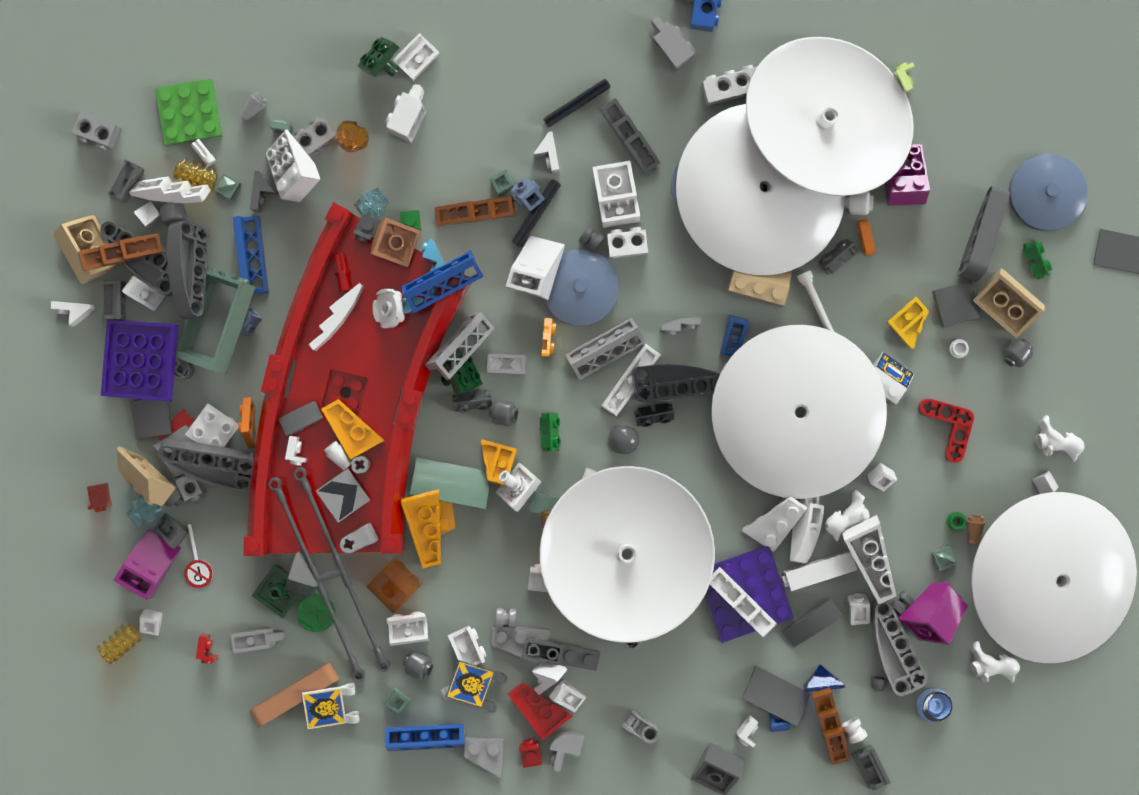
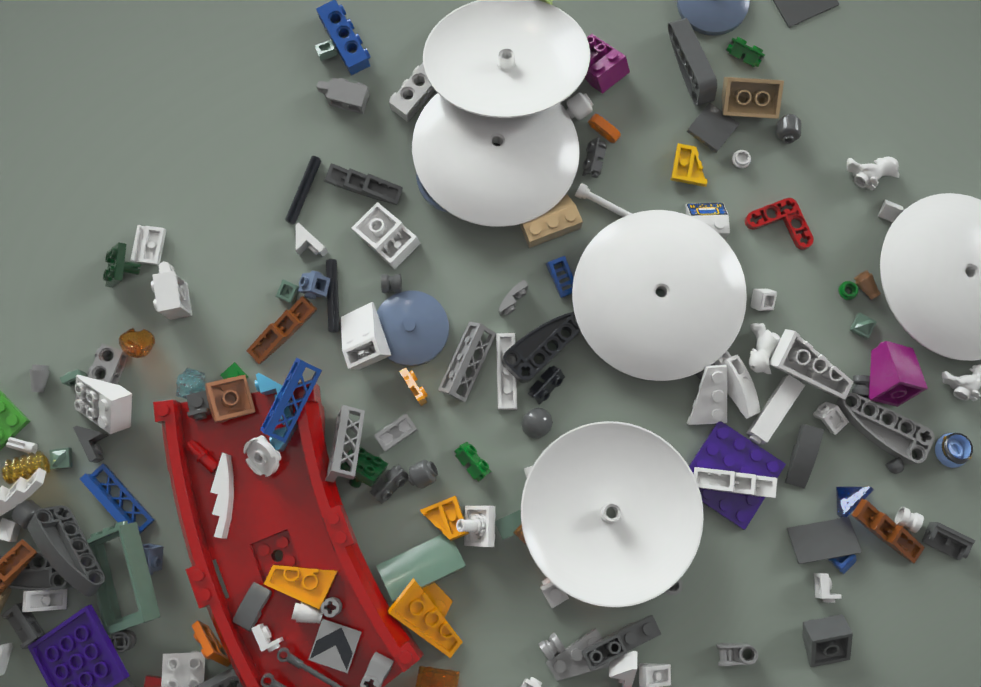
camera: 30 degrees left, 10 degrees down
(628, 248) = (426, 269): white brick -> none

